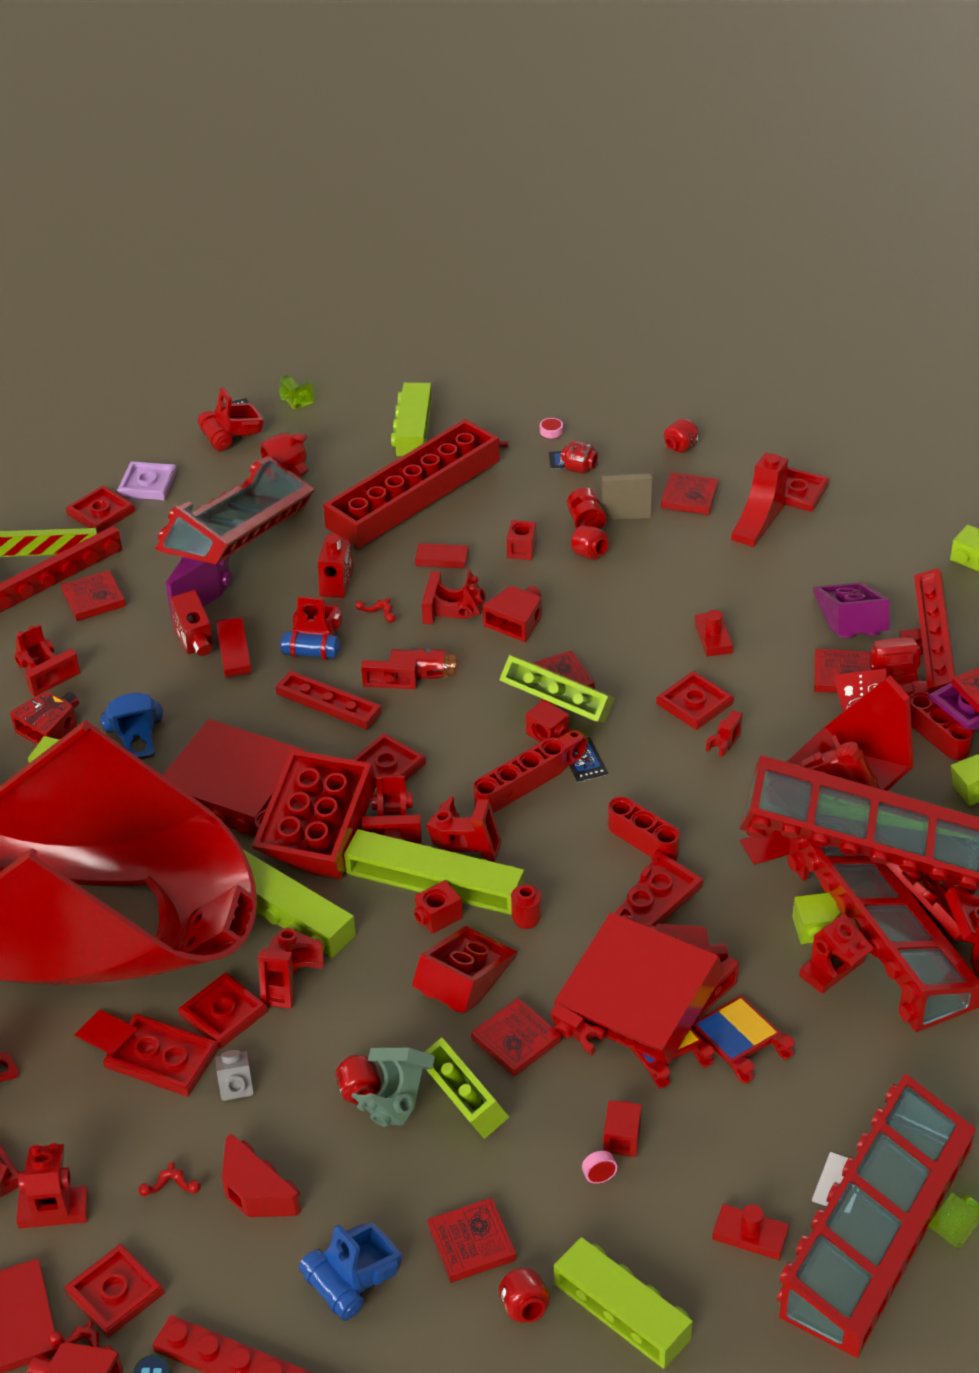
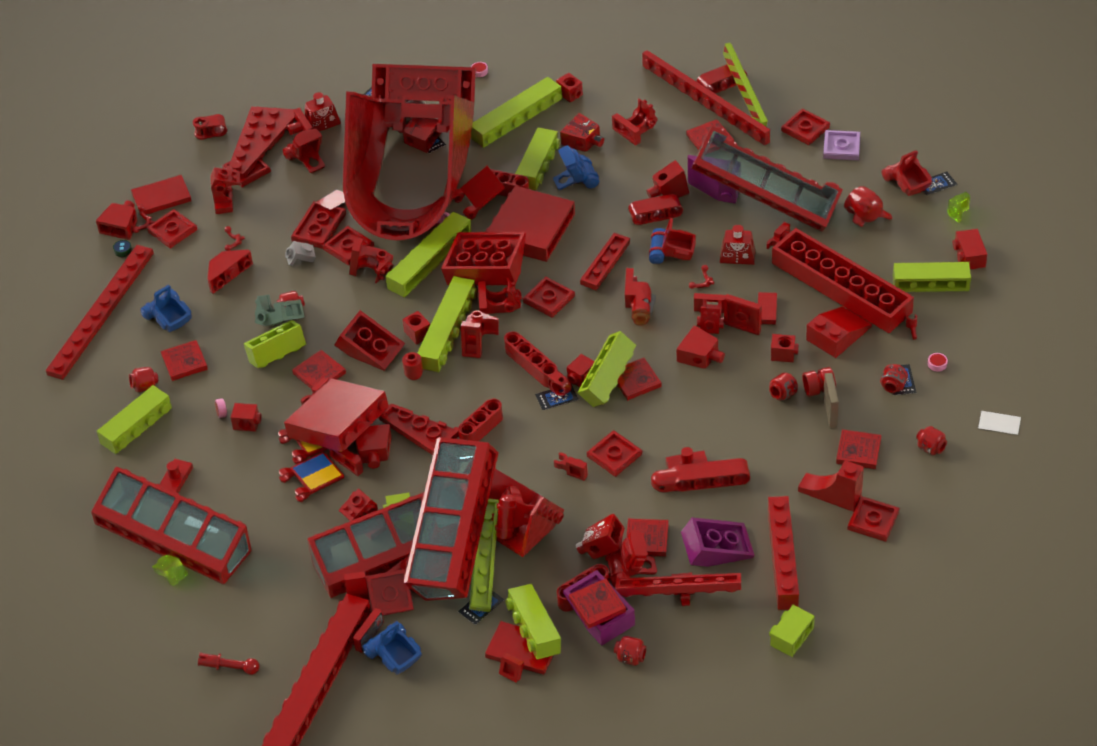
camera: 90 degrees right, 5 degrees up
(314, 532) = (782, 231): none -> red plate
(371, 388) = (970, 248): none -> red brick
(468, 556) = (742, 314): none -> red tile
(495, 497) = (836, 330): none -> red slope
(645, 394) = (999, 422): none -> white sticker
(740, 617) = (702, 475): none -> red piece
(865, 551) = (783, 552): none -> red brick

